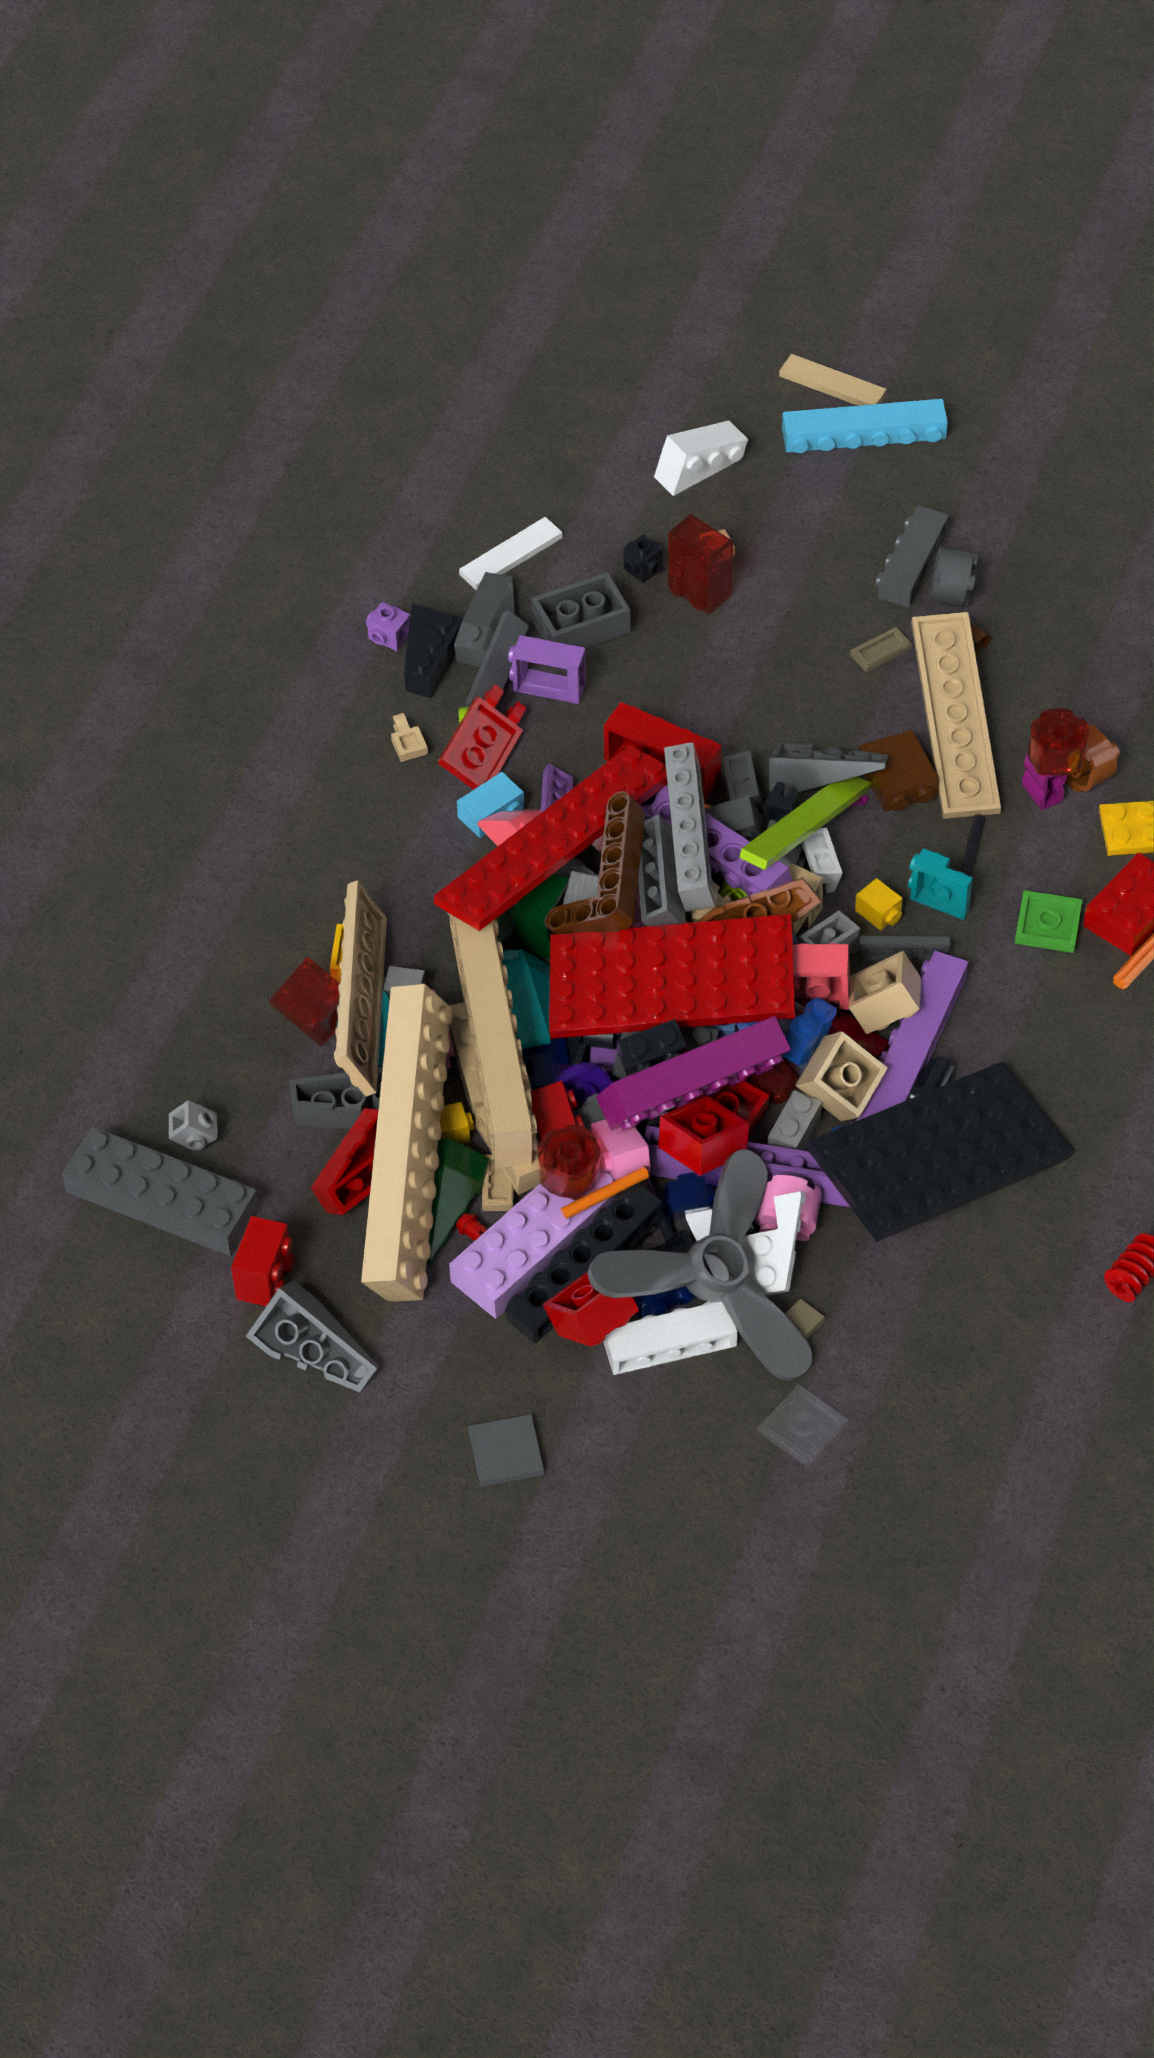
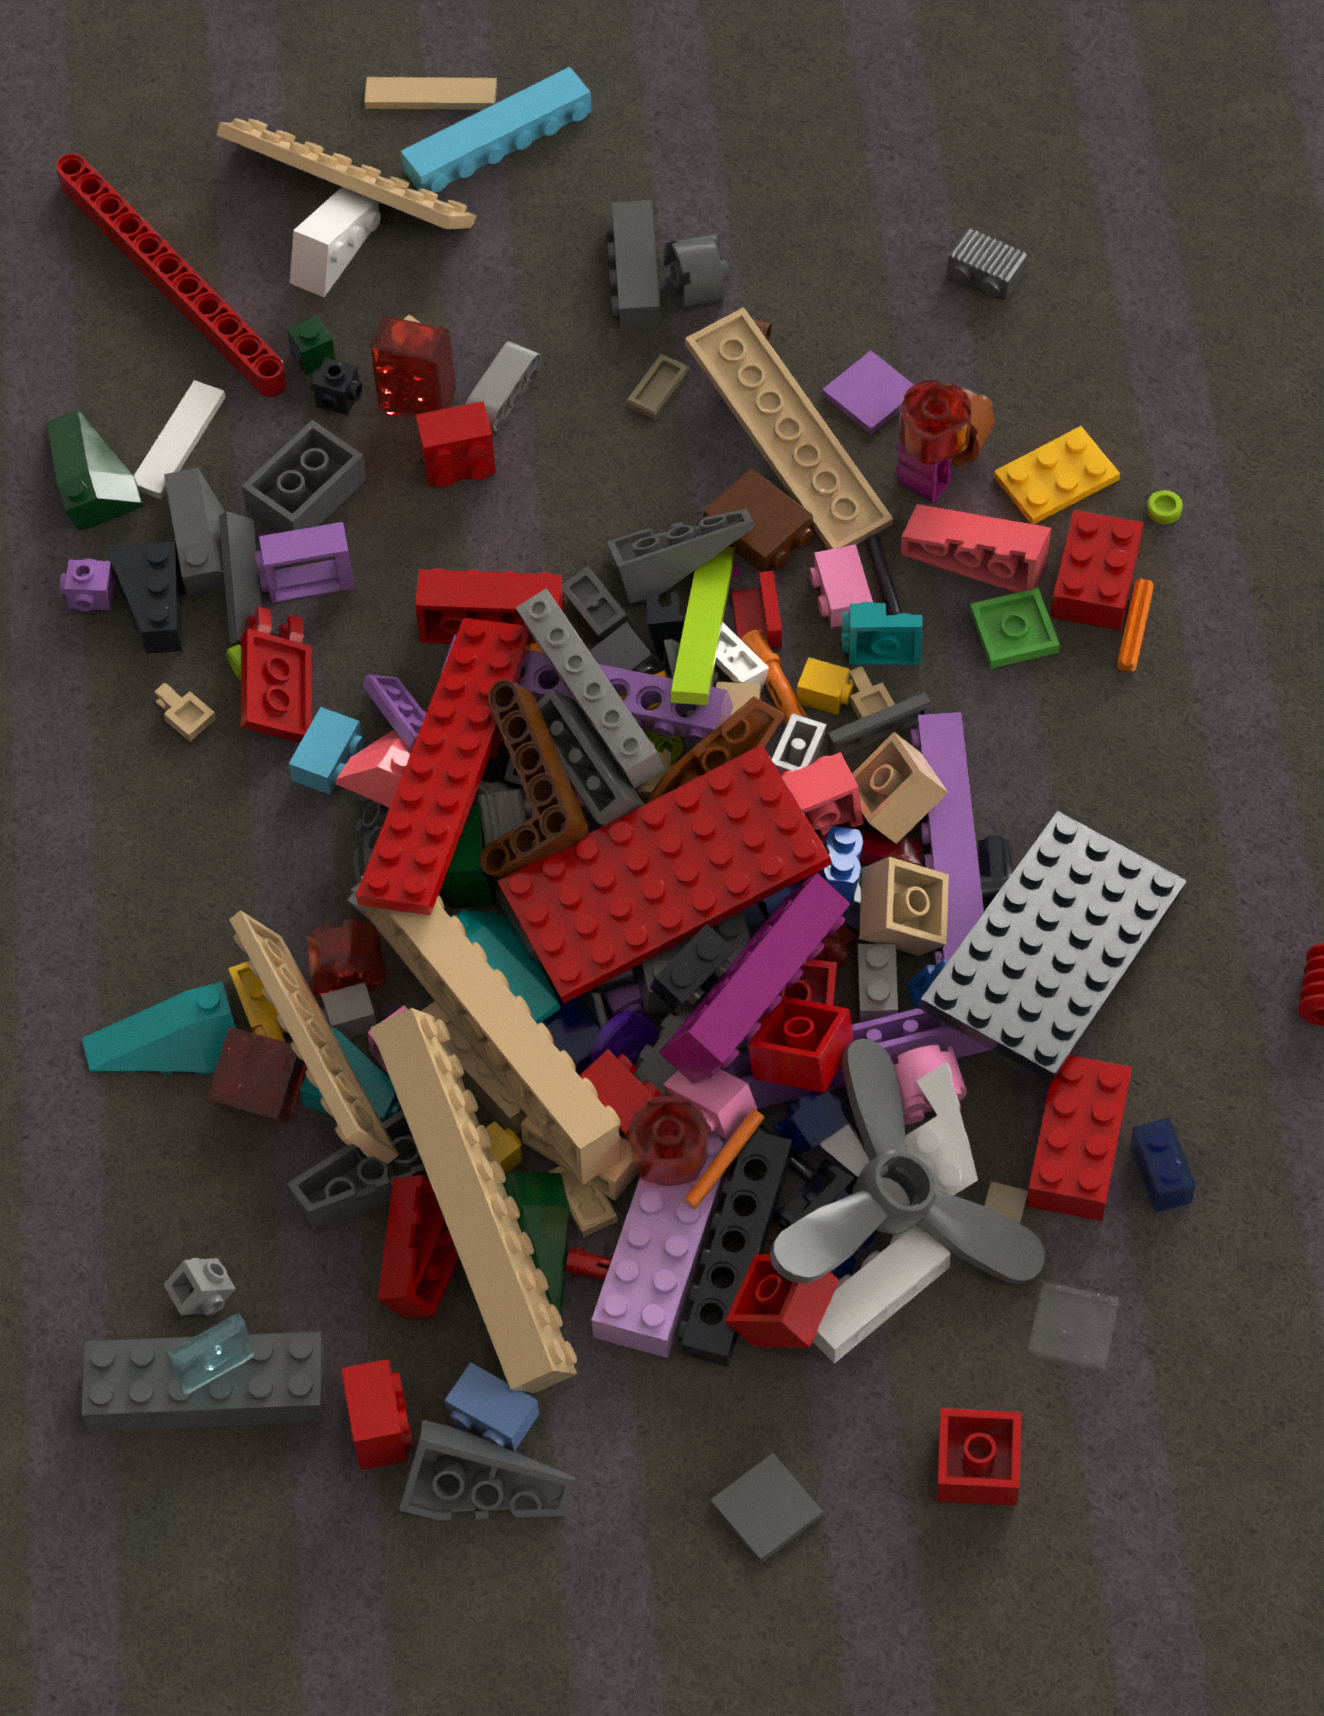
camera: 25 degrees left, 5 degrees up
(165, 1165) = (211, 1353): none -> clear light blue tile
(268, 951) = (166, 1038): none -> teal wedge
(351, 1301) = (491, 1408): none -> medium blue brick
(420, 946) = (345, 956): none -> clear red brick
(432, 552) = (89, 474): none -> dark green wedge
(570, 439) = (172, 275): none -> red beam
(641, 521) = (310, 344): none -> dark green brick
(675, 1480) = (979, 1456): none -> red brick
(703, 629) = (456, 444): none -> red brick
(732, 412) = (341, 172): none -> tan plate
(764, 603) = (504, 381): none -> light grey beam
(846, 884) = (775, 680): none -> orange pin
(861, 837) = (759, 610): none -> red panel
(882, 1295) = (1079, 1138): none -> red brick
(908, 924) = (867, 698): none -> tan plate
(934, 832) = (840, 581): none -> bright pink brick
(934, 1340) = (1162, 1165): none -> clear blue brick
(1029, 705) = (868, 392): none -> medium lavender tile
(1053, 852) = (978, 546): none -> coral wedge

